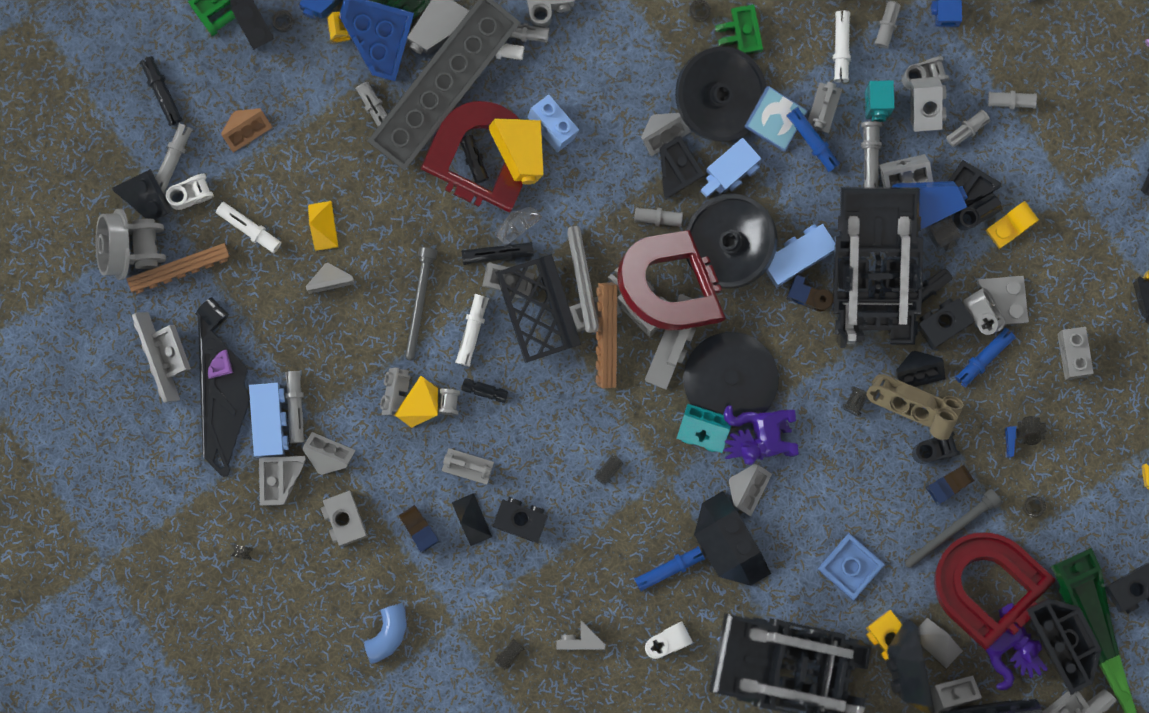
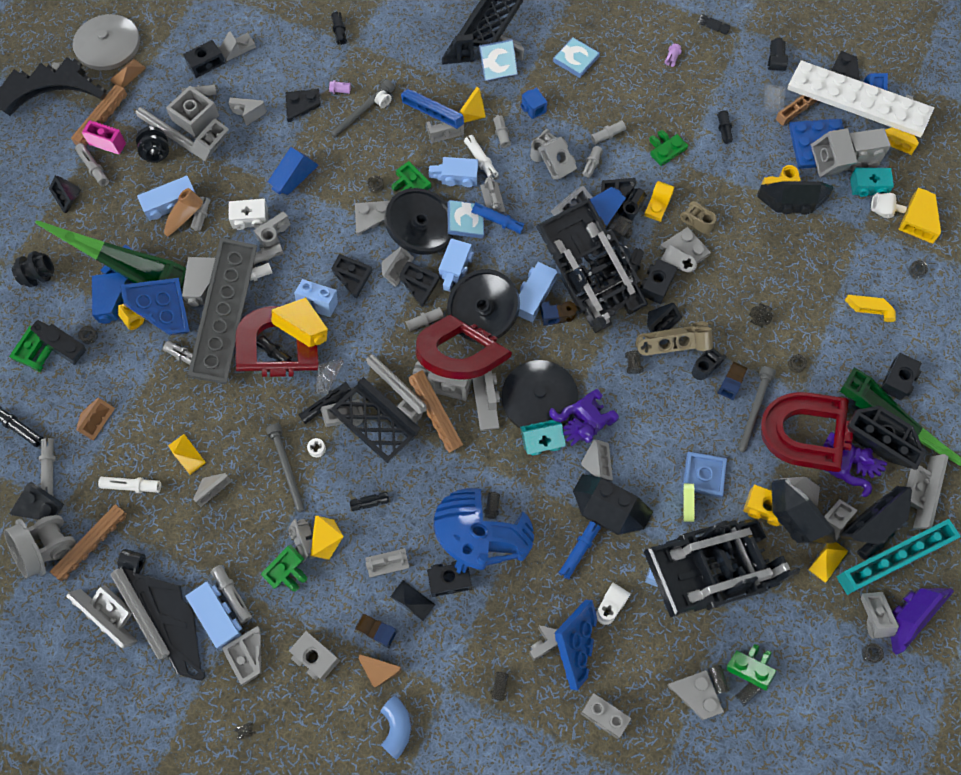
camera: 30 degrees left, 15 degrees down
(191, 192) = (72, 483): white piece -> none
(195, 375) = (140, 614): none -> light grey axle
(220, 365) = (155, 595): medium lavender tile -> none
(327, 454) = (274, 616): light grey slope -> none
(361, 410) = (282, 567): none -> green hinge
(398, 569) = (378, 671): none -> medium nougat slope
(448, 402) = (346, 523): light grey bush -> none
(460, 291) = (312, 443): none -> white bush
(472, 330) = (334, 457): white pin -> none
(566, 471) = (469, 538): none -> blue piece
(607, 658) = (576, 643): none -> blue plate
(609, 113) = (351, 274): none -> black wing
(671, 48) = (369, 215): none -> light grey wing
(801, 50) = (456, 171): none -> light blue hinge
(812, 587) = (688, 502): none -> yellowish green beam
(871, 146) = (537, 202): light grey pin -> none
(879, 100) = (525, 170): teal brick -> none
(978, 364) = (697, 294): blue pin -> none
(1010, 433) = (750, 328): blue piece -> none
(1043, 267) = (698, 217): none -> dark tan piece
(1069, 163) = (669, 149): none -> green hinge
(1075, 353) = (754, 253): light grey brick -> none

